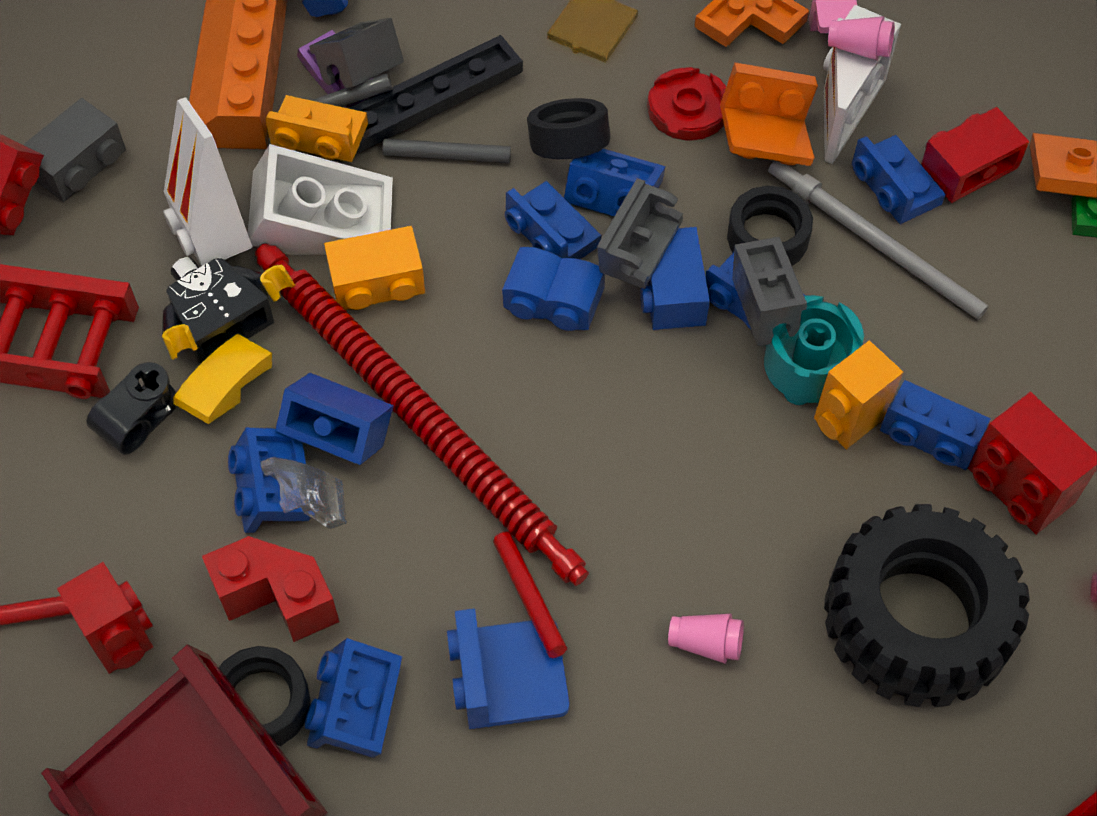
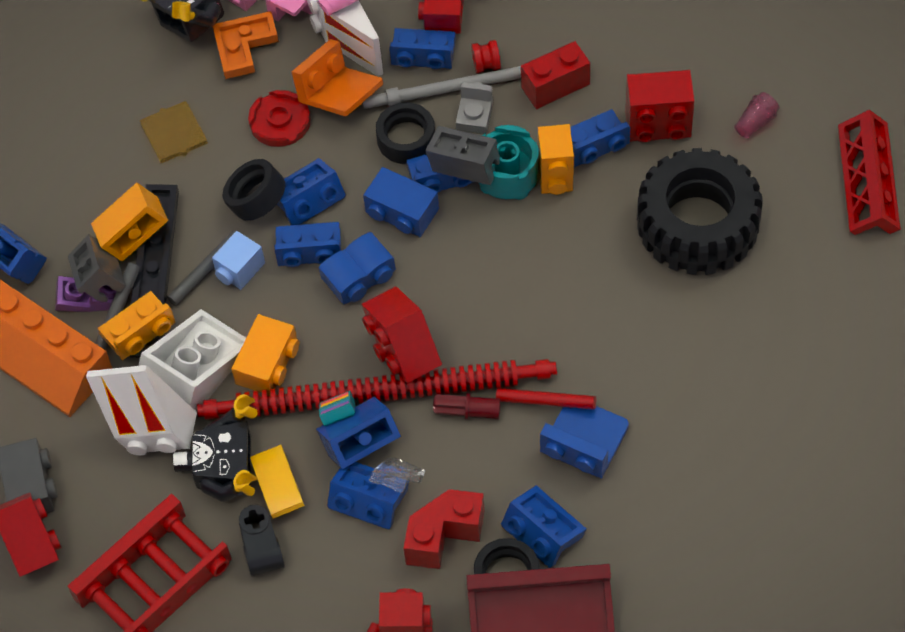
camera: 50 degrees left, 0 degrees up
(348, 376) = (337, 408): none -> teal tile
(435, 43) = (129, 222): none -> light orange brick
(460, 515) = (466, 406): none -> dark red axle
(473, 171) = (238, 260): none -> light blue brick
(480, 377) = (400, 334): none -> red brick
(639, 234) = (369, 196): dark grey hinge -> none
(708, 636) = (636, 326): bright pink cone -> none
(864, 276) = (474, 107): none -> light grey bracket
(939, 243) = (485, 56): none -> red wheel
(979, 327) = (555, 75): none -> red brick

